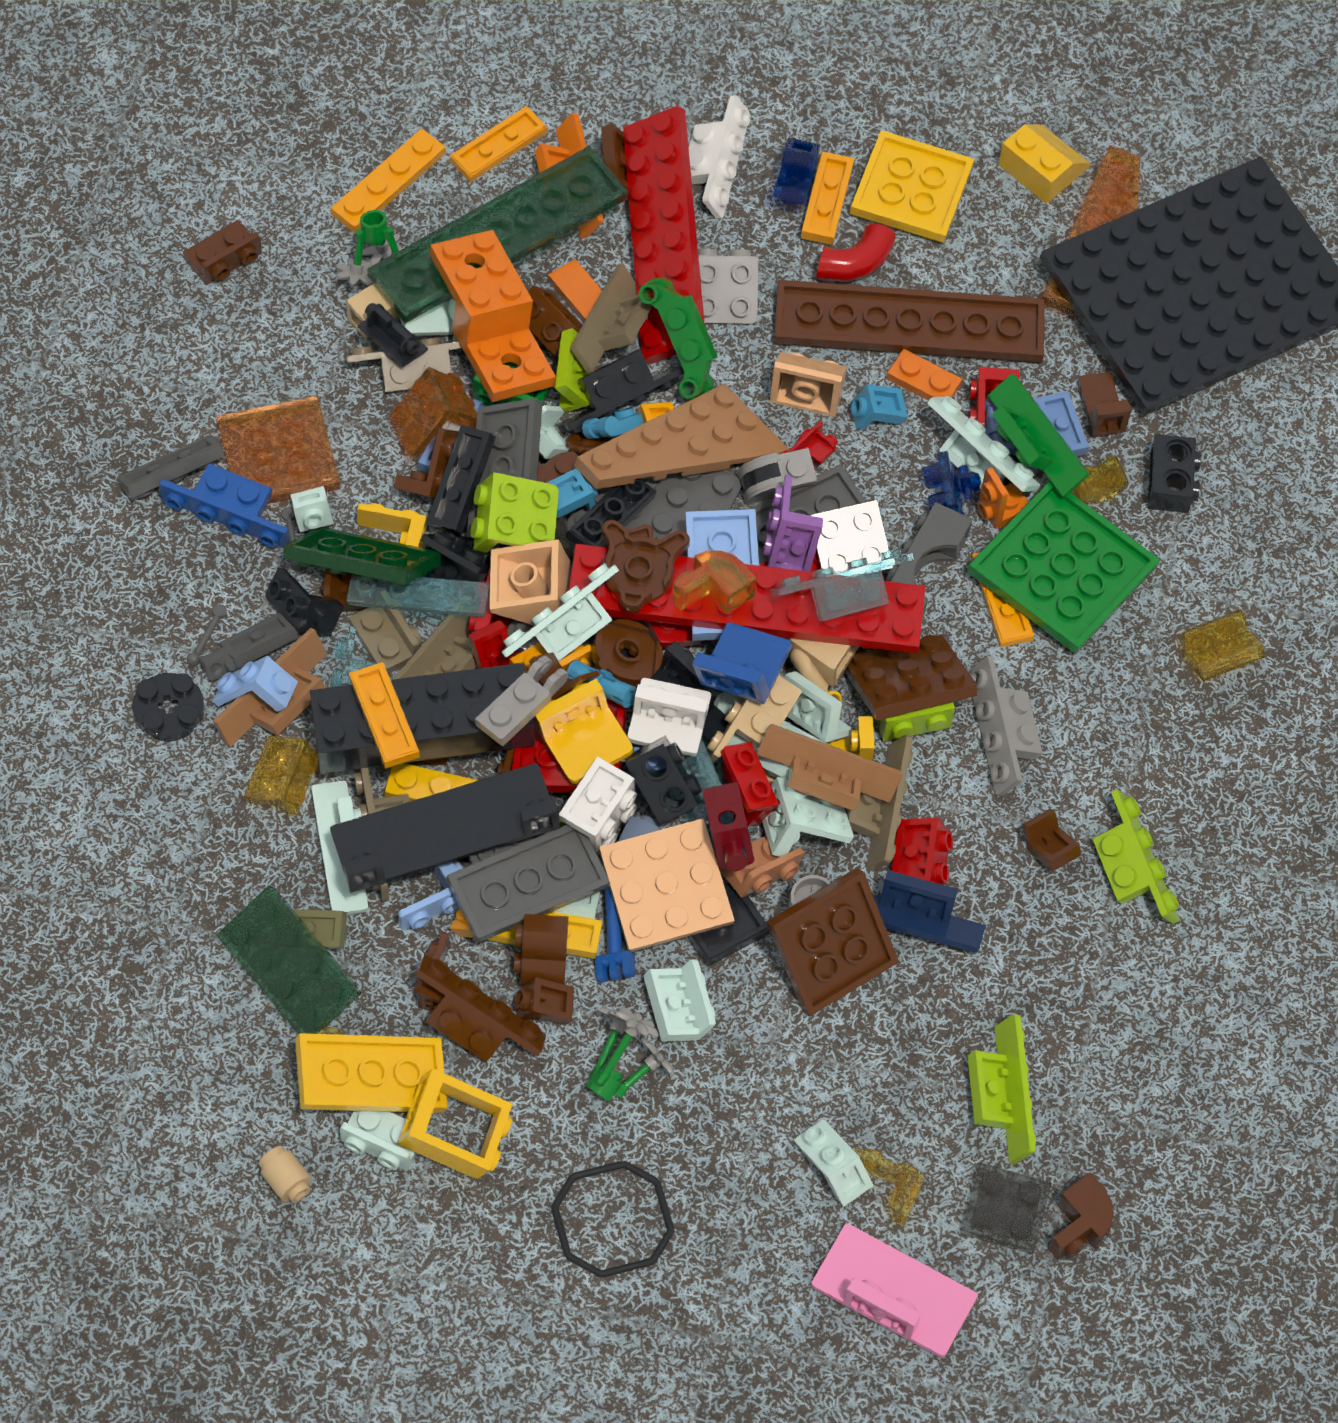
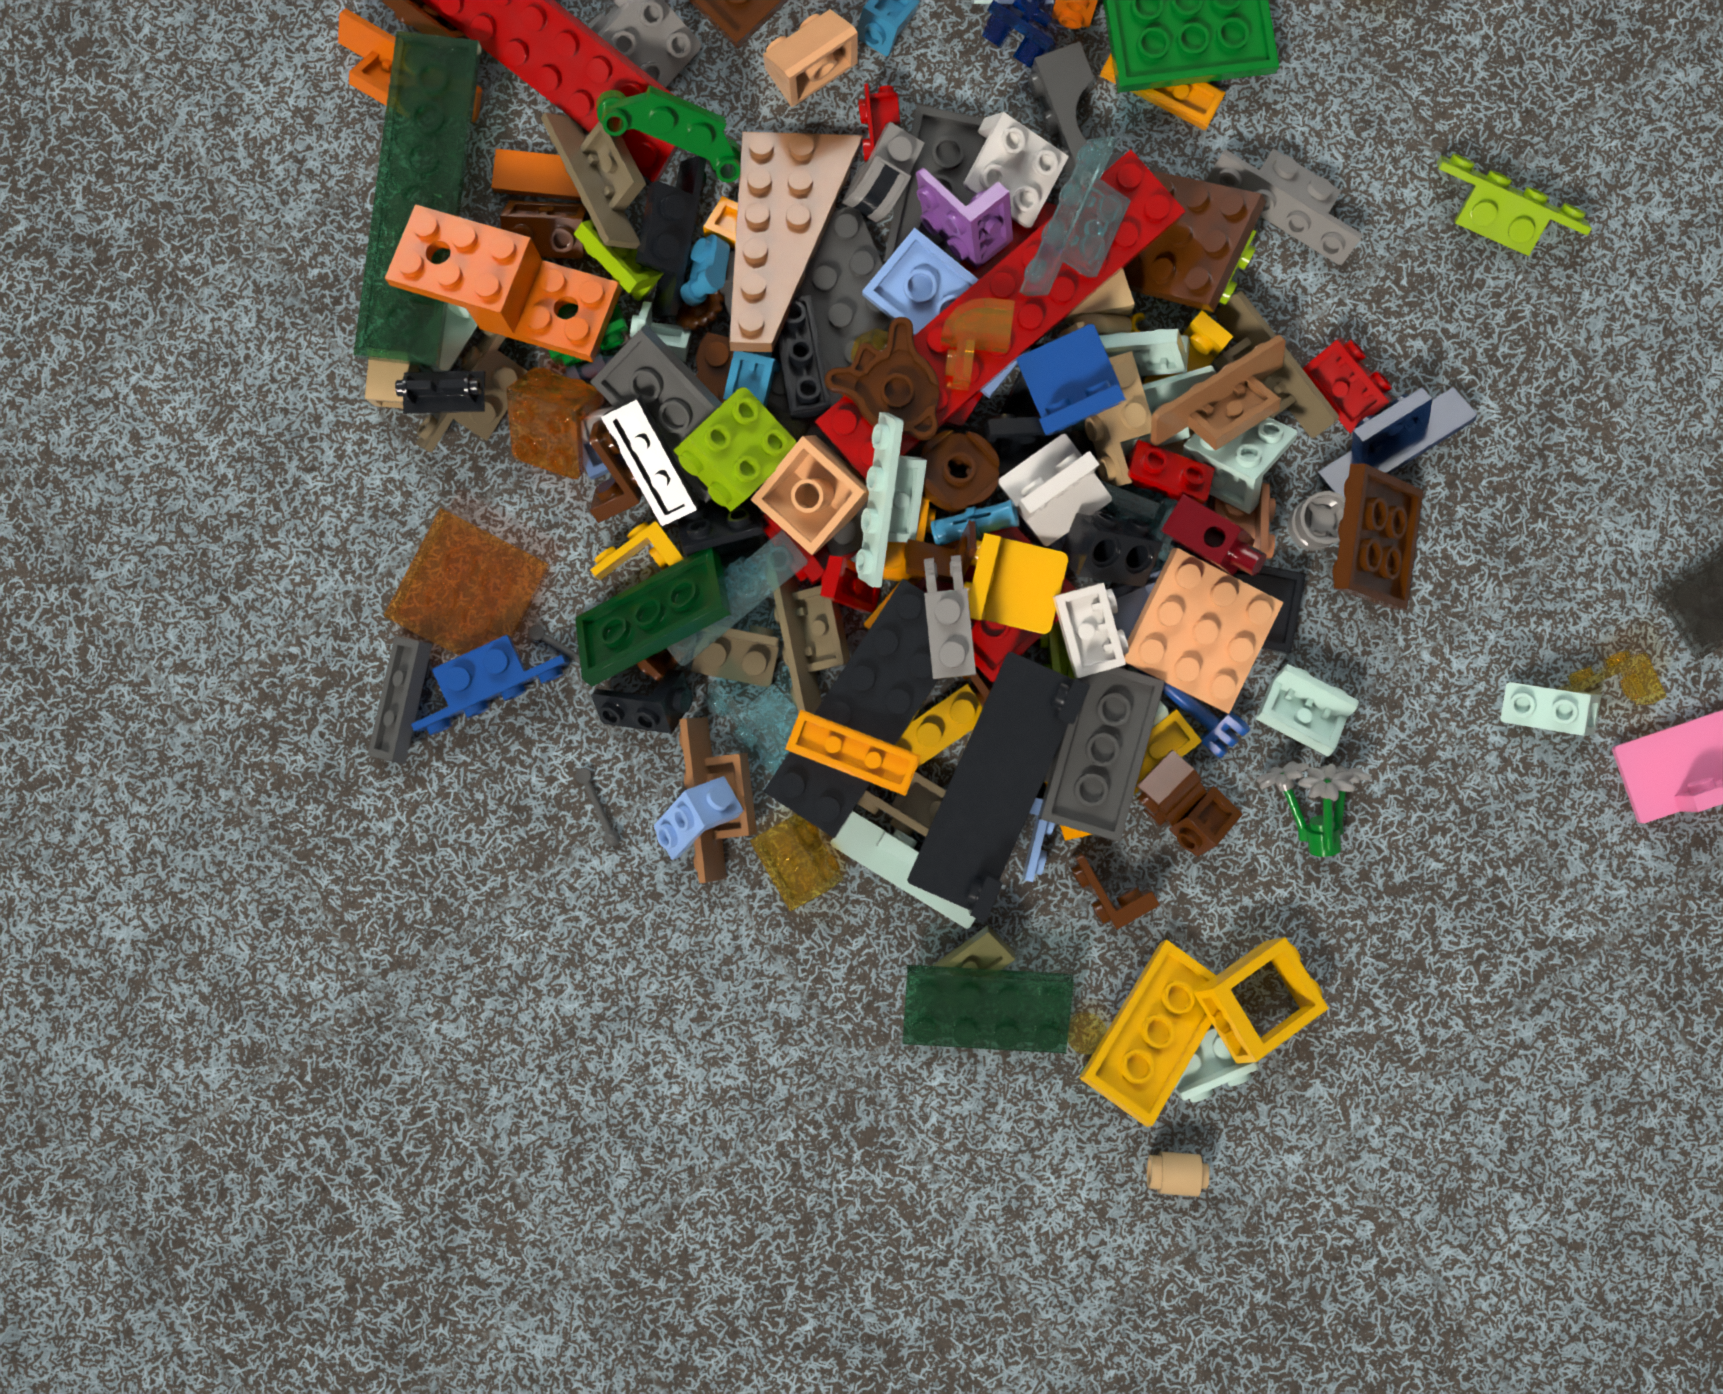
camera: 45 degrees left, 25 degrees up
(168, 687) = (619, 909): black plate -> none
(223, 252) = (208, 460): reddish brown bracket -> none
(249, 646) = (645, 782): dark grey hinge -> none
(311, 509) = (554, 612): light aqua bracket -> none
(382, 244) = (323, 313): plant -> none
(389, 179) = (260, 243): light orange plate -> none
(474, 1017) = (1175, 896): reddish brown bracket -> none
(498, 144) = (308, 108): light orange tile -> none
(626, 1267) = (1492, 953): black piece -> none
(1002, 1089) = (1615, 510): lime bracket -> none
(1049, 842) = (1432, 263): reddish brown bracket -> none

